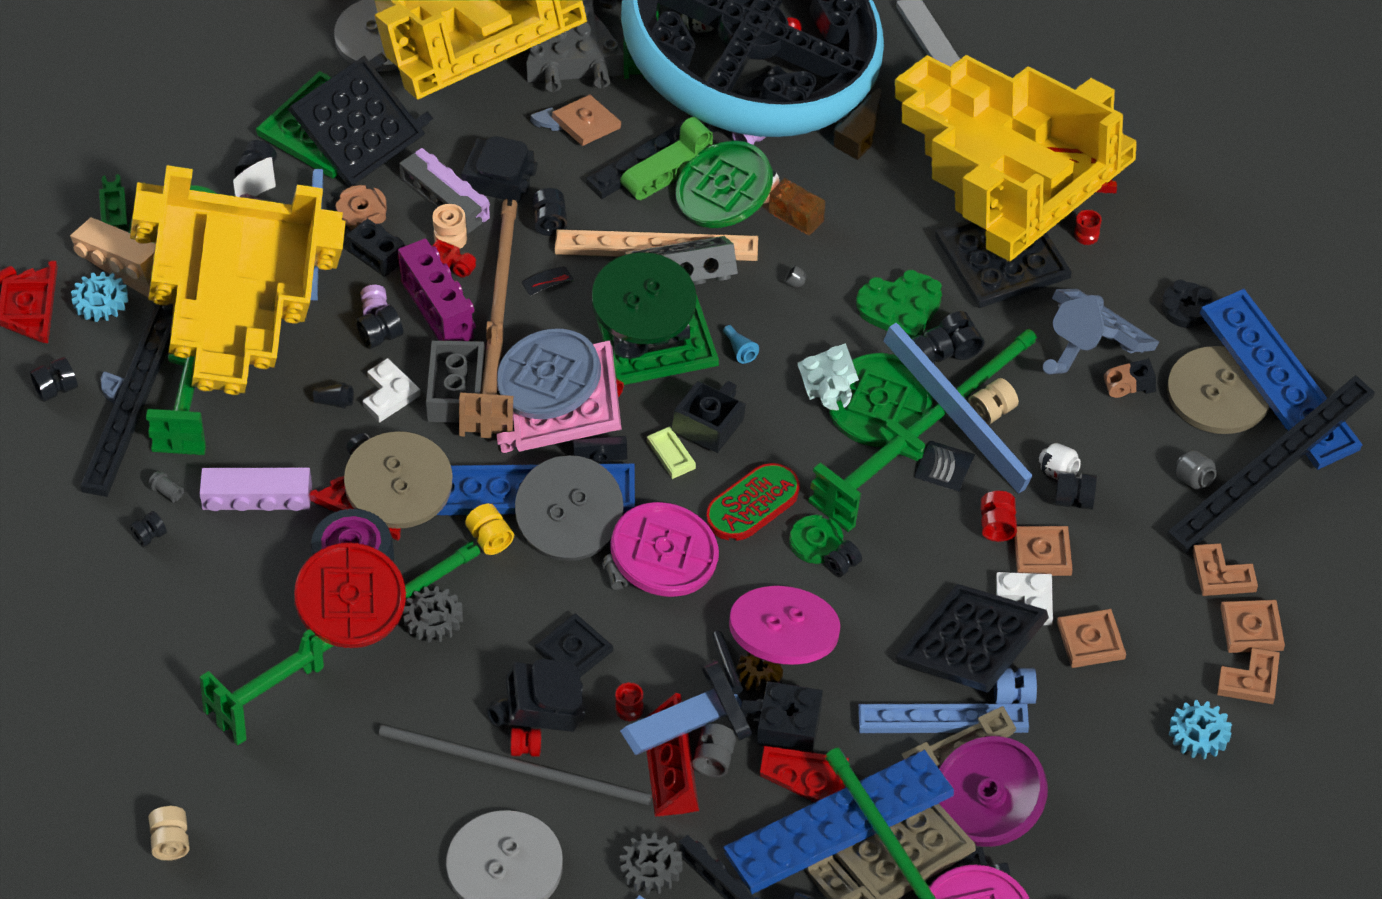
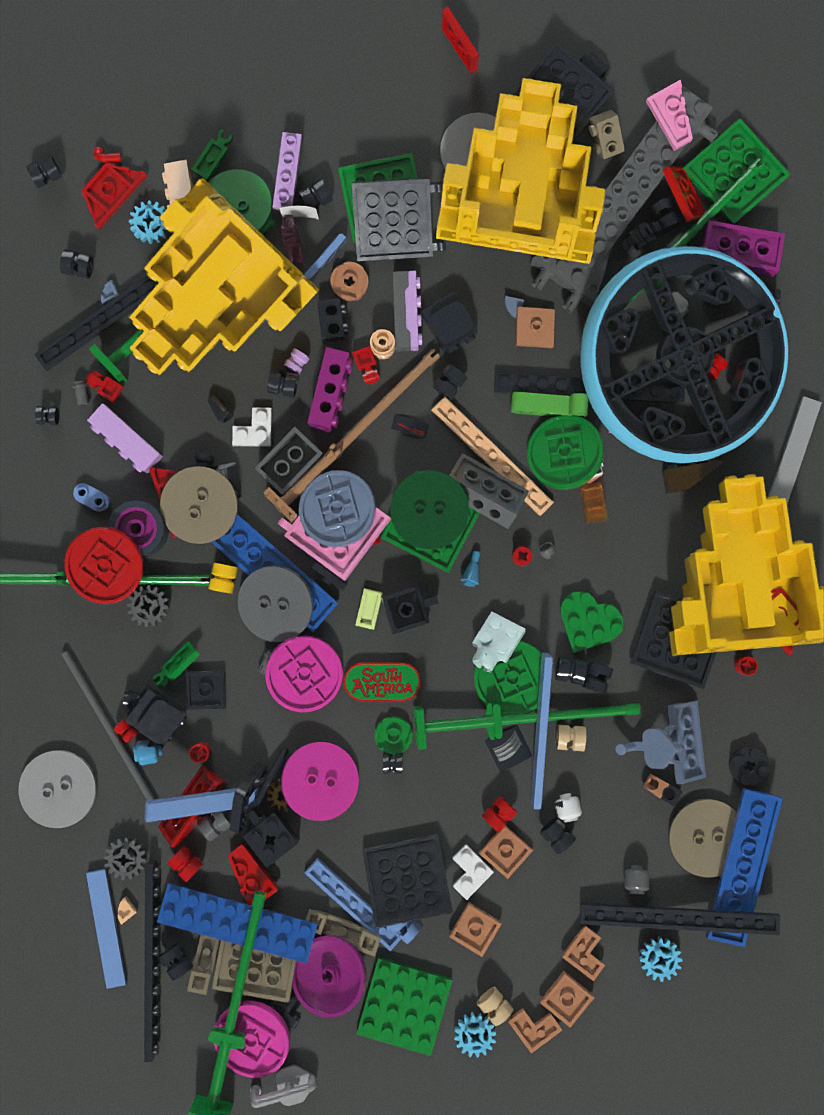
camera: 45 degrees right, 35 degrees up
(191, 461) = (108, 388): none -> red plate
(204, 159) = (288, 171): none -> lavender piece
(270, 570) = (91, 497): none -> medium blue plate
(519, 637) = (176, 664): none -> green plate
(569, 745) = (147, 752): none -> dark azure head
(722, 813) = (185, 863): none -> red wheel
(778, 303) = (519, 558): none -> red wheel
(1102, 769) = (404, 1006): none -> green plate
(1179, 684) = (497, 1009): none -> tan wheel
(1310, 517) = (667, 956): none -> medium azure gear

